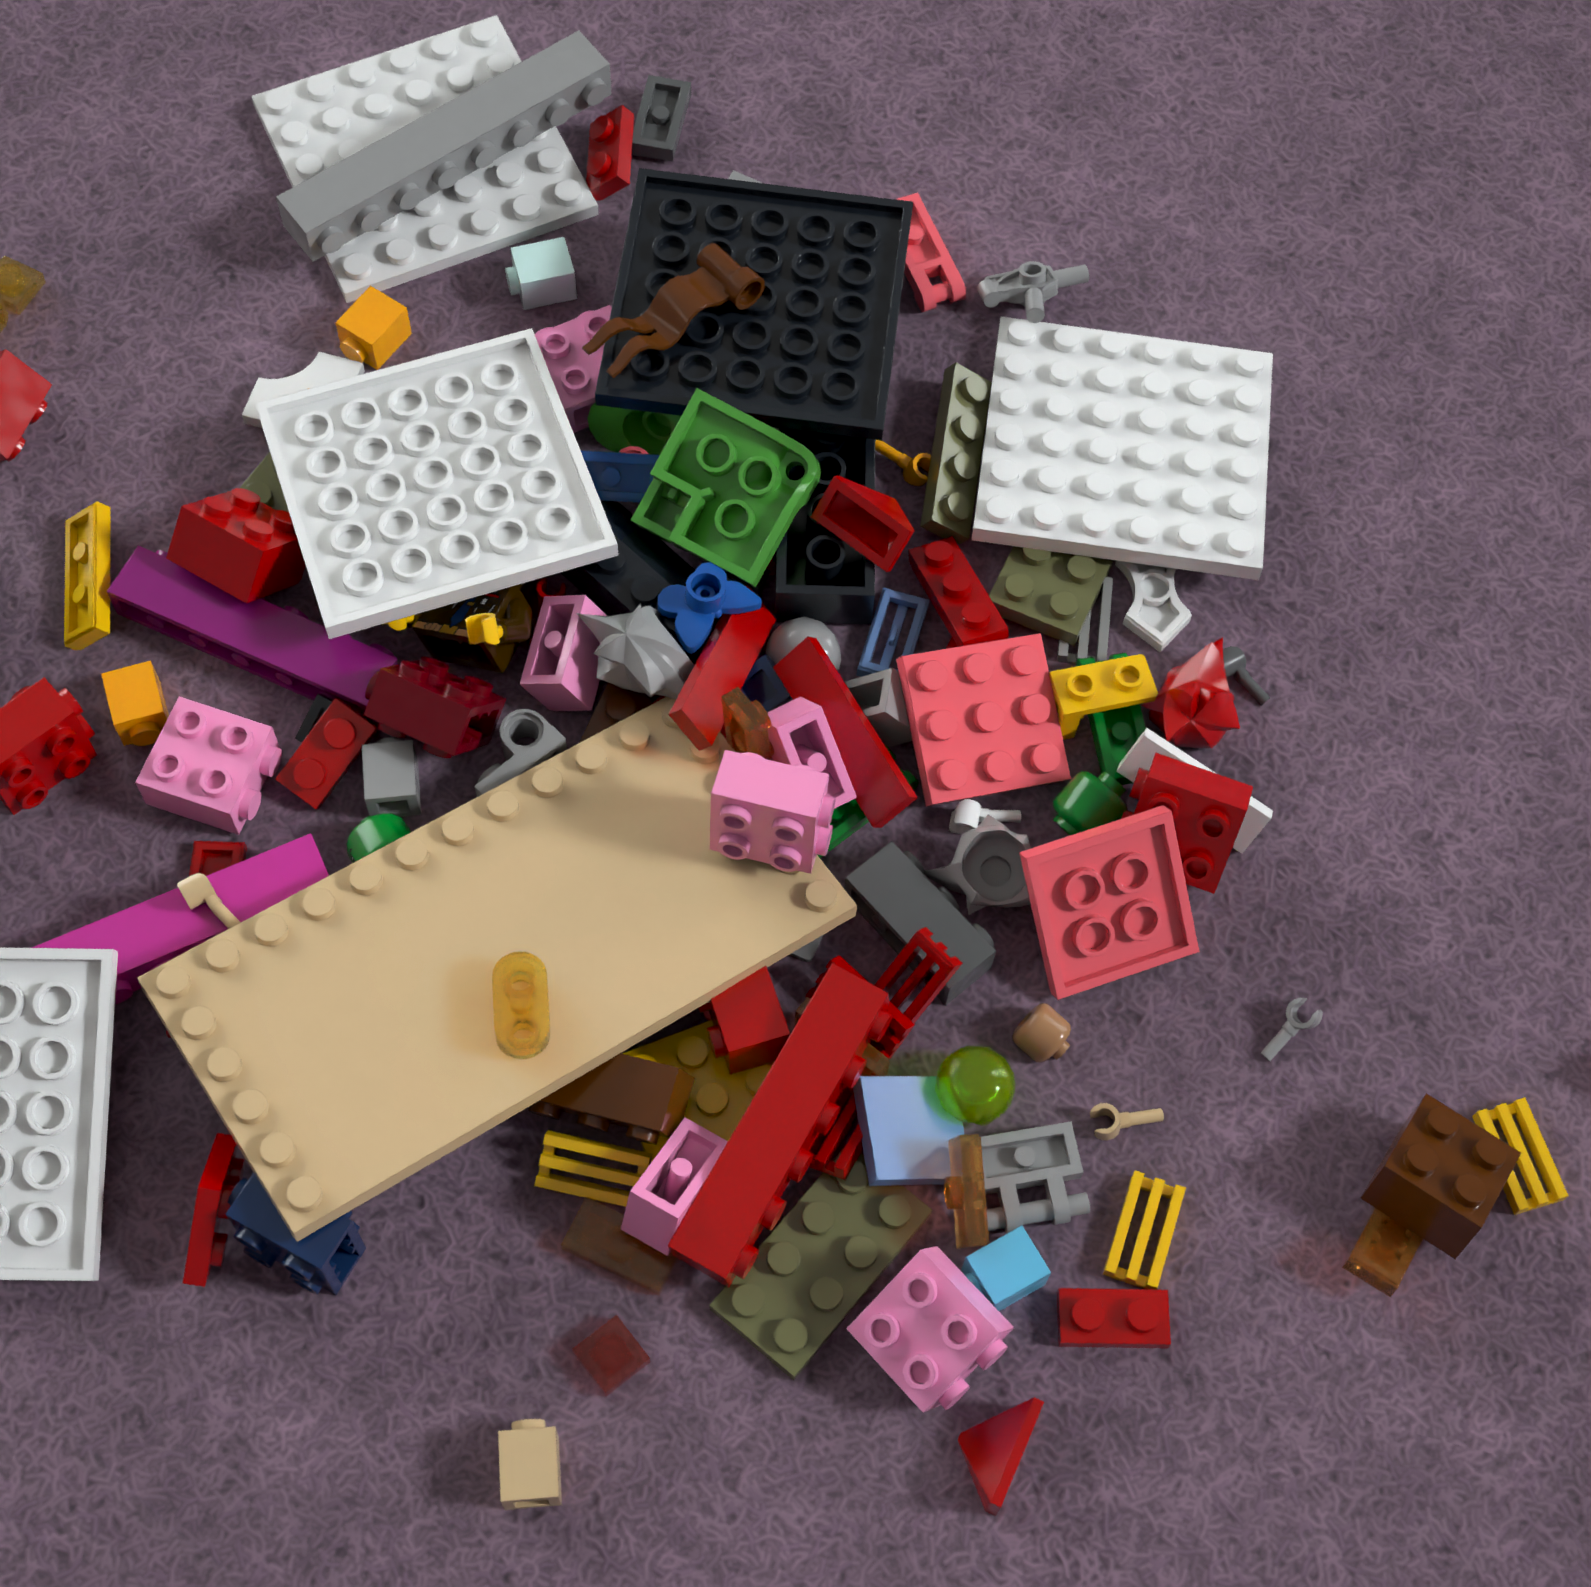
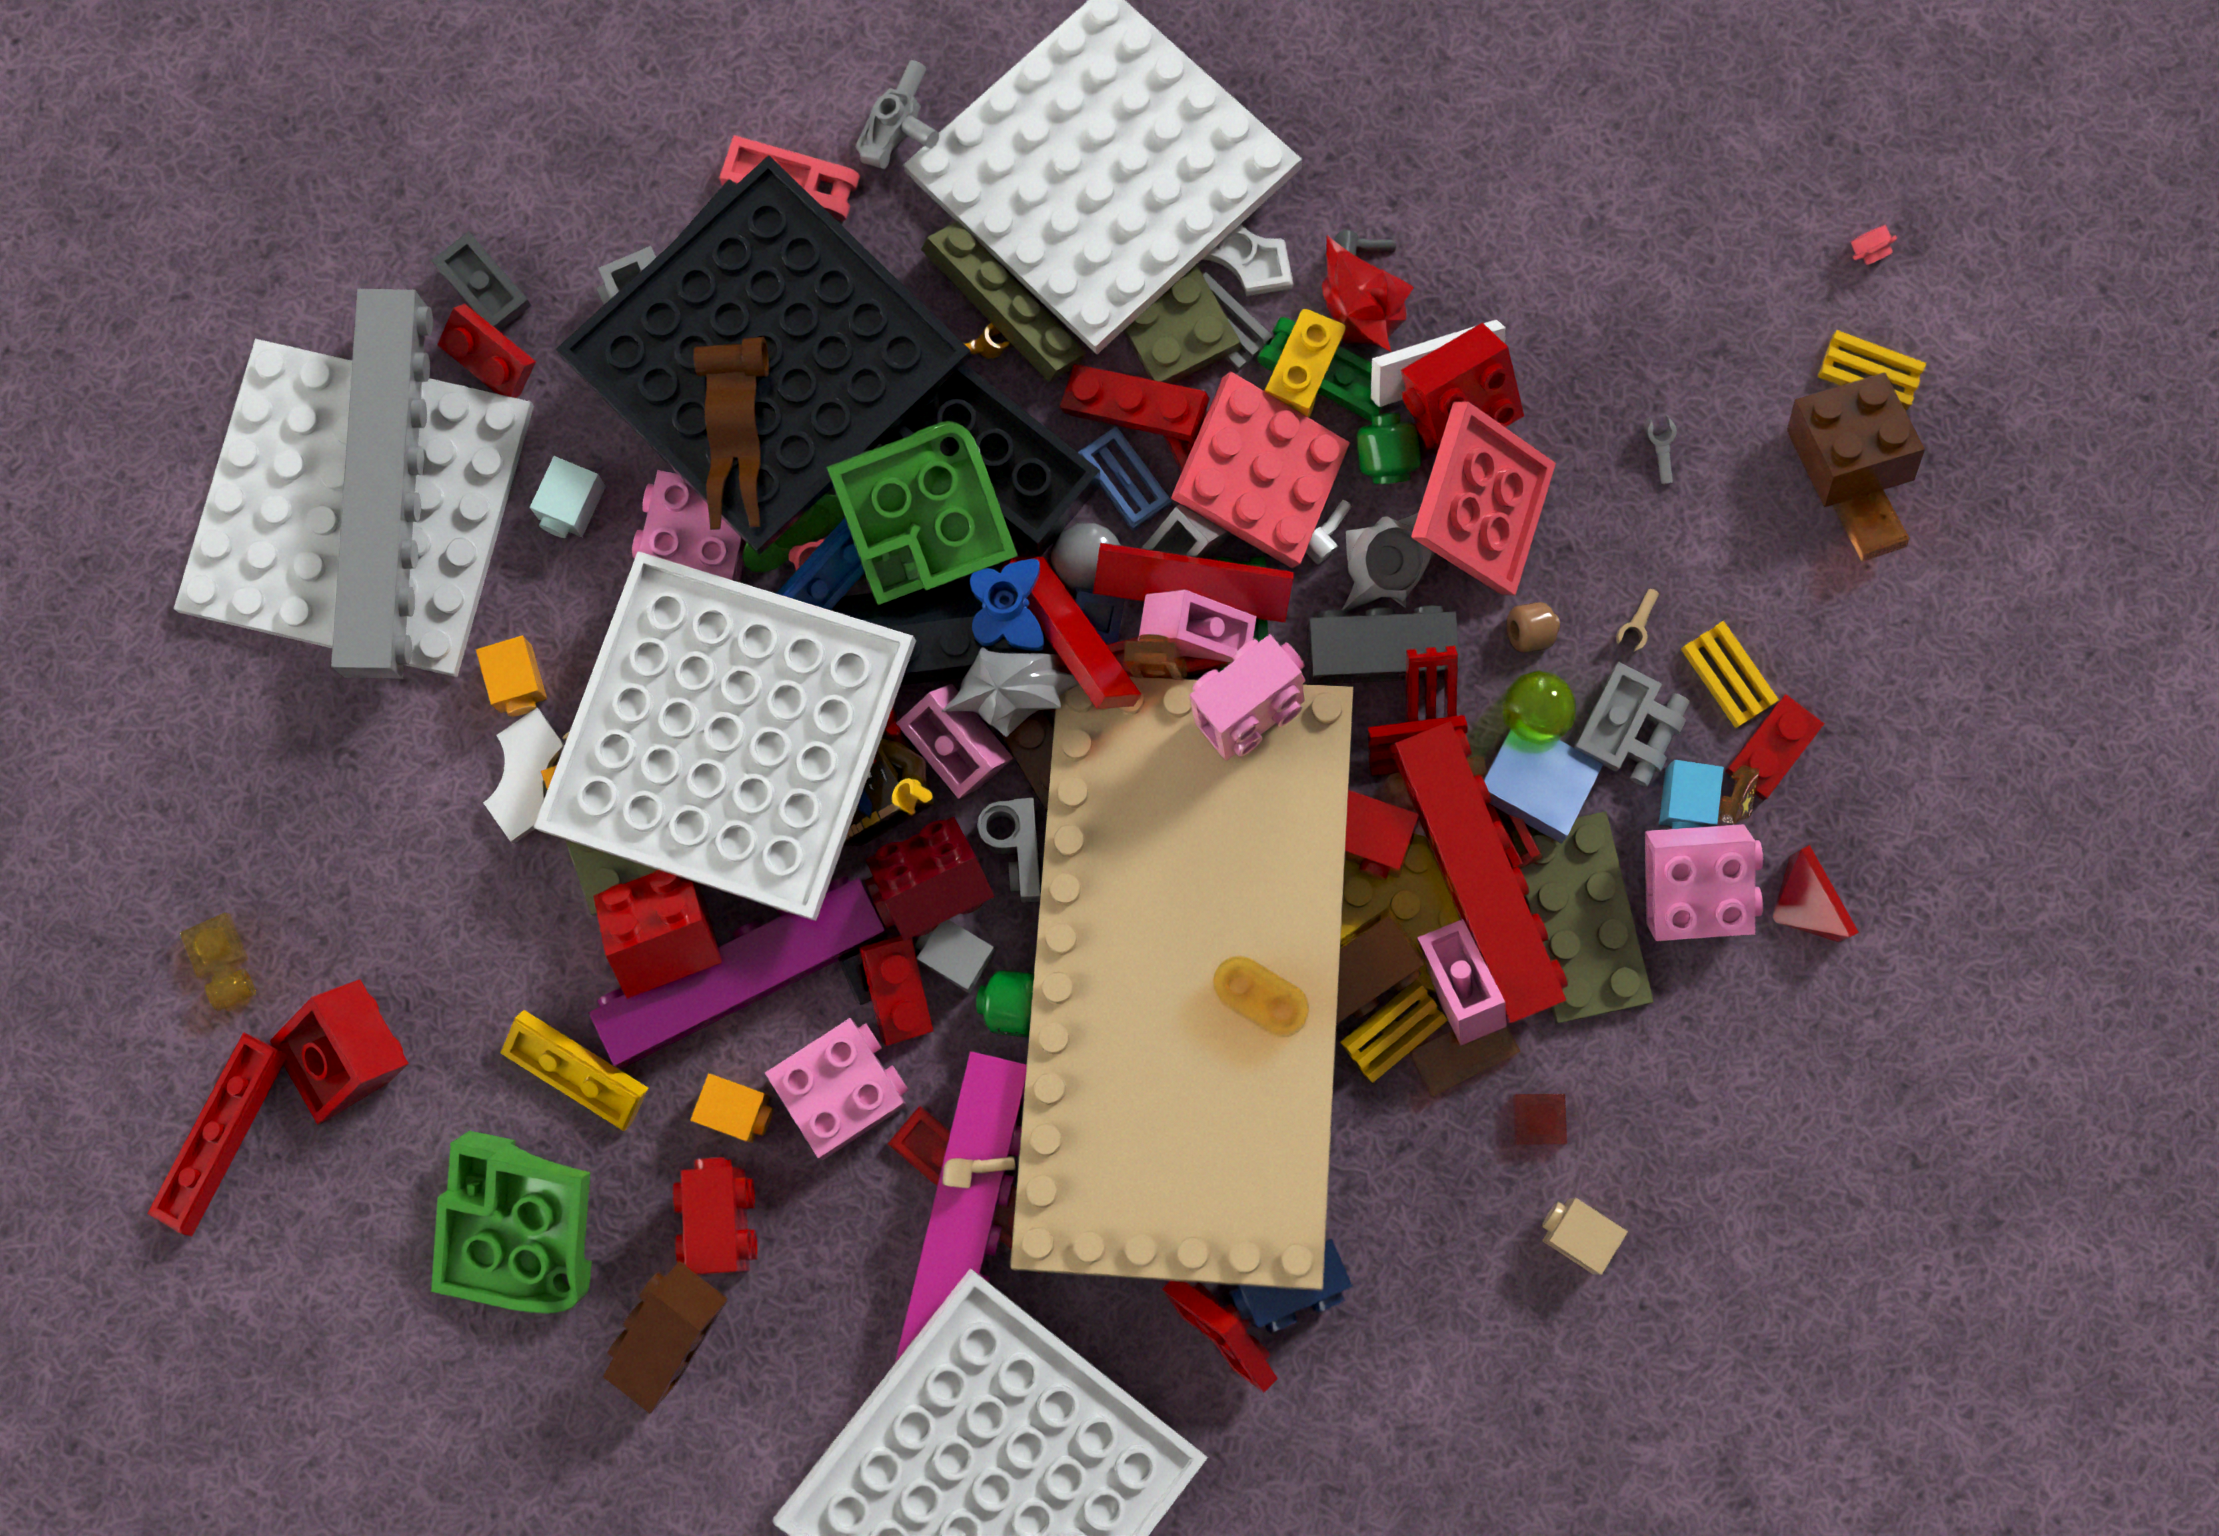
camera: 50 degrees left, 15 degrees up
(865, 521) = (1036, 425): red slope -> none
(966, 1191) = (1621, 778): clear orange plate -> none
(1039, 1314) = (1740, 804): none -> clear orange tile

